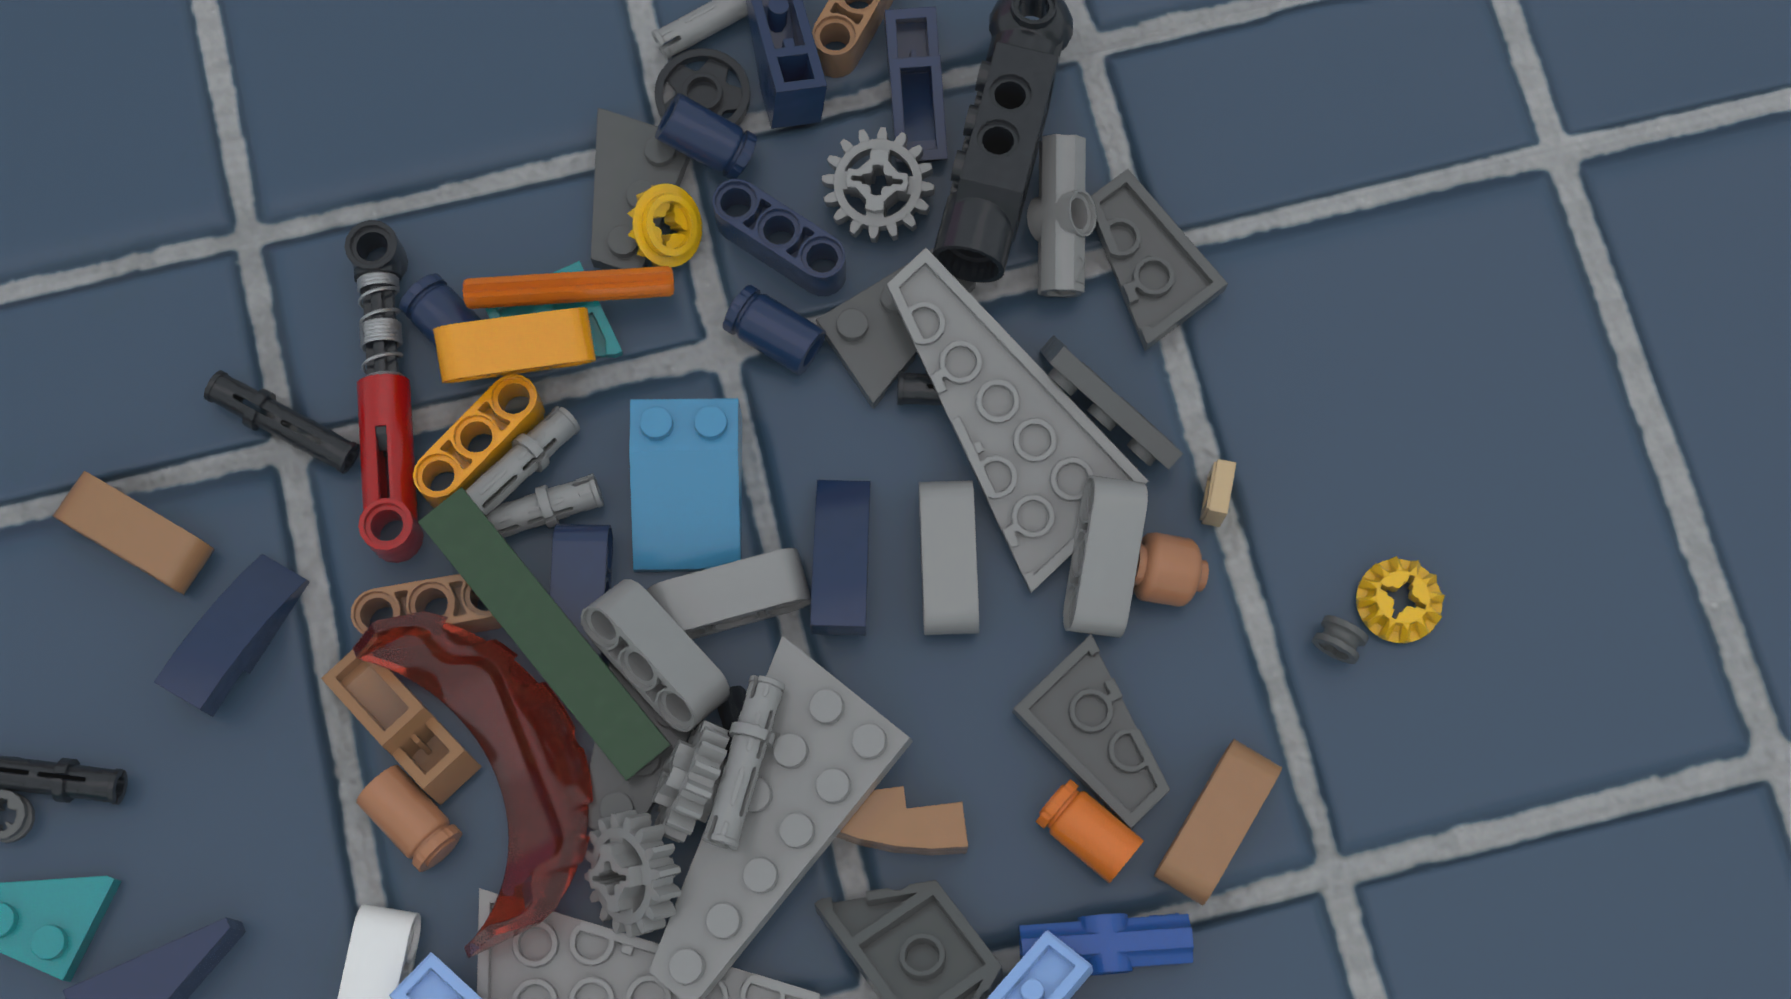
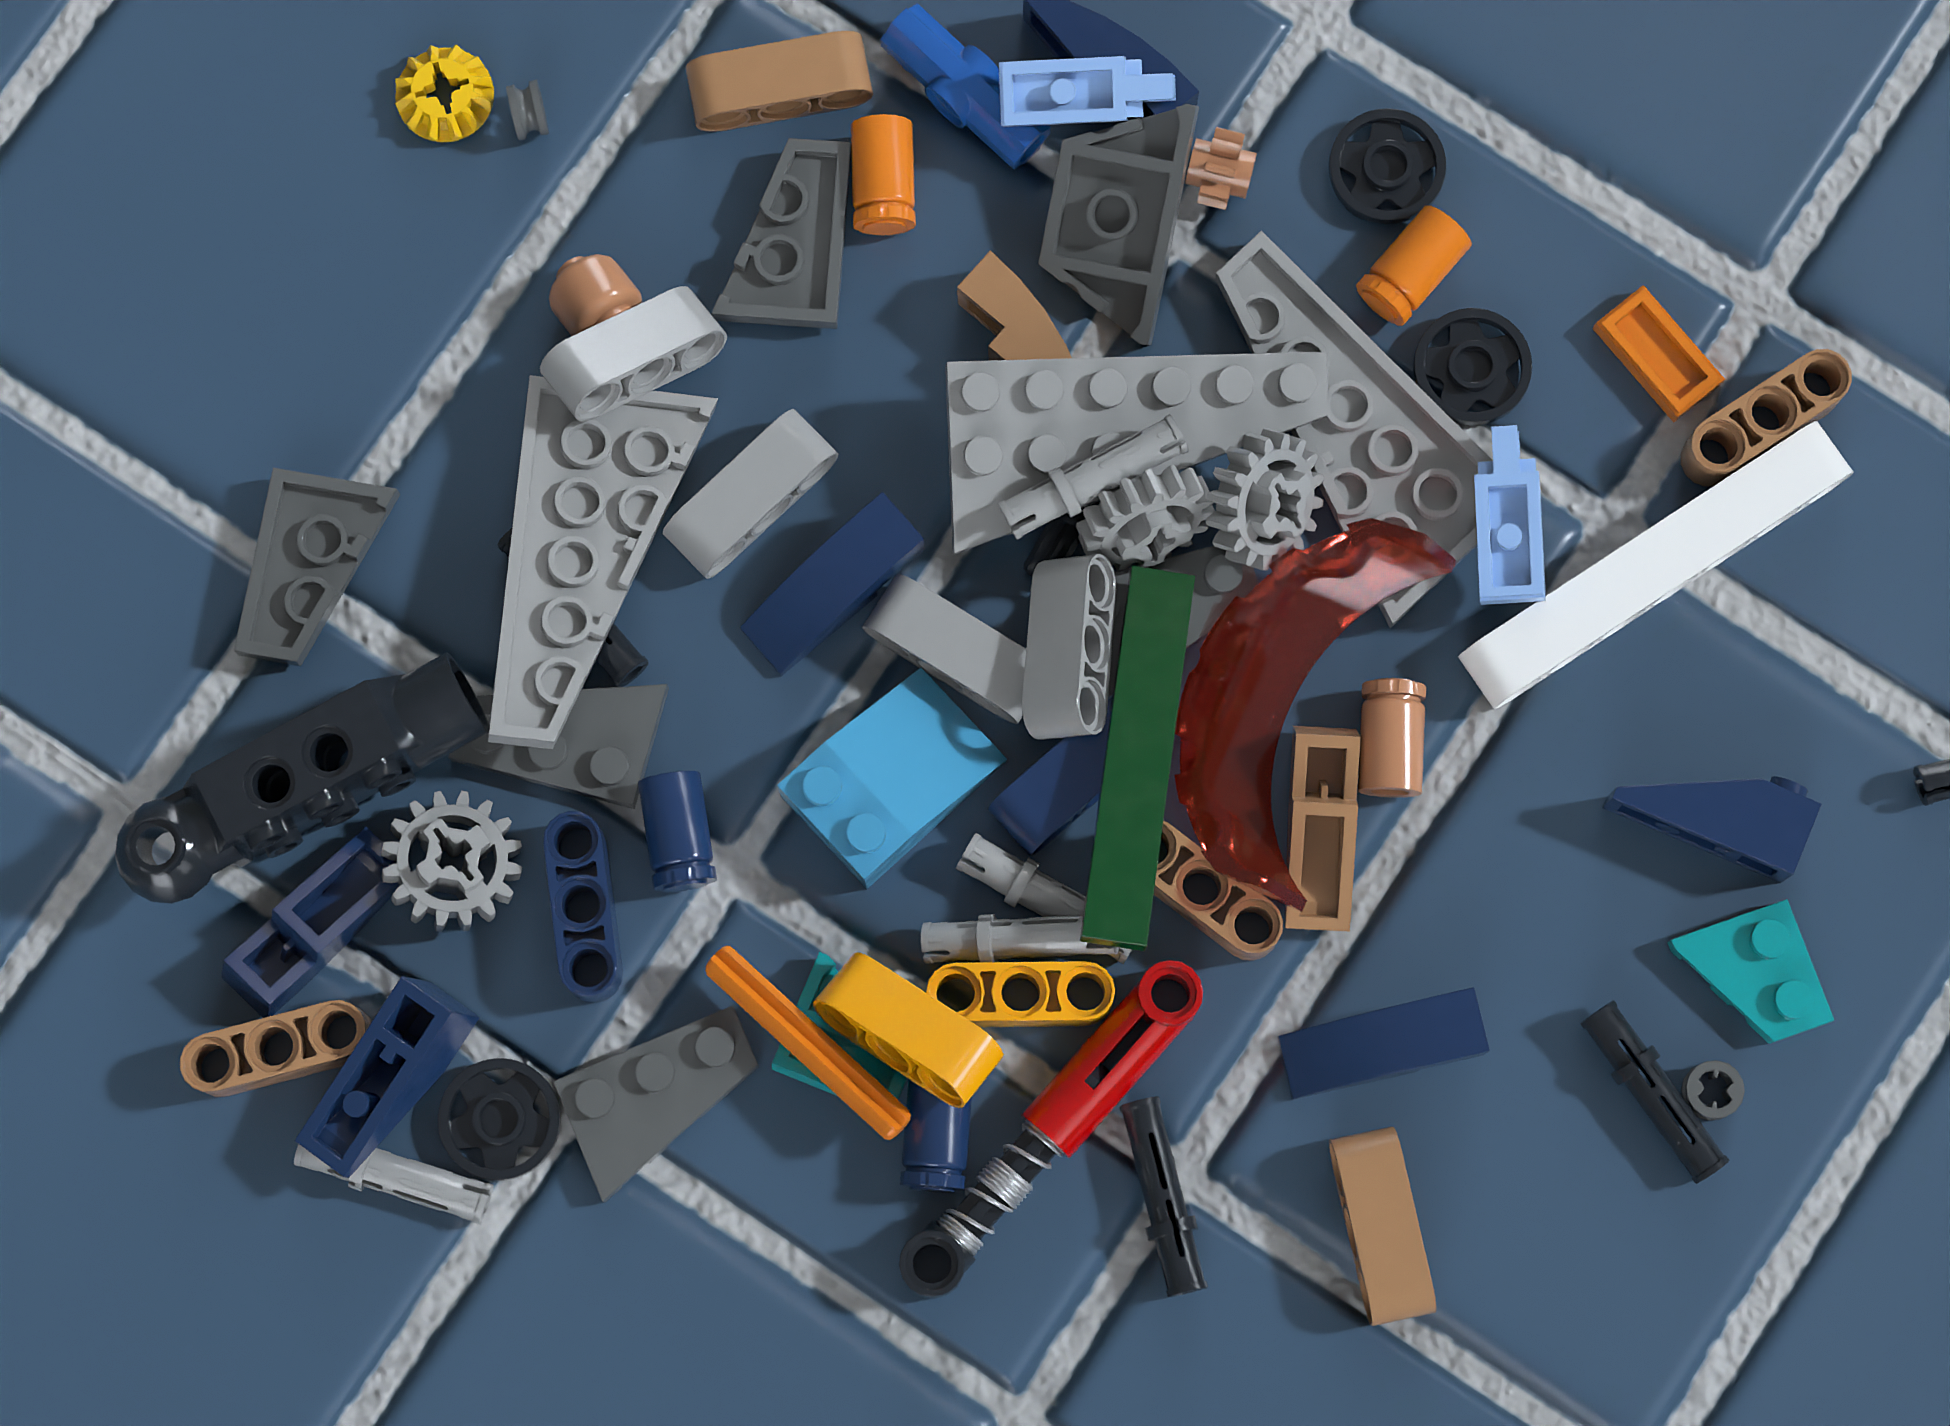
camera: 130 degrees left, 5 degrees up
(678, 212) = (681, 999): yellow gear -> none
(706, 137) = (546, 1059): dark blue piece -> none
(1061, 216) = (339, 659): light grey piece -> none
(1108, 406) = (485, 510): dark grey wing -> none
(1217, 493) = (484, 315): tan tile -> none

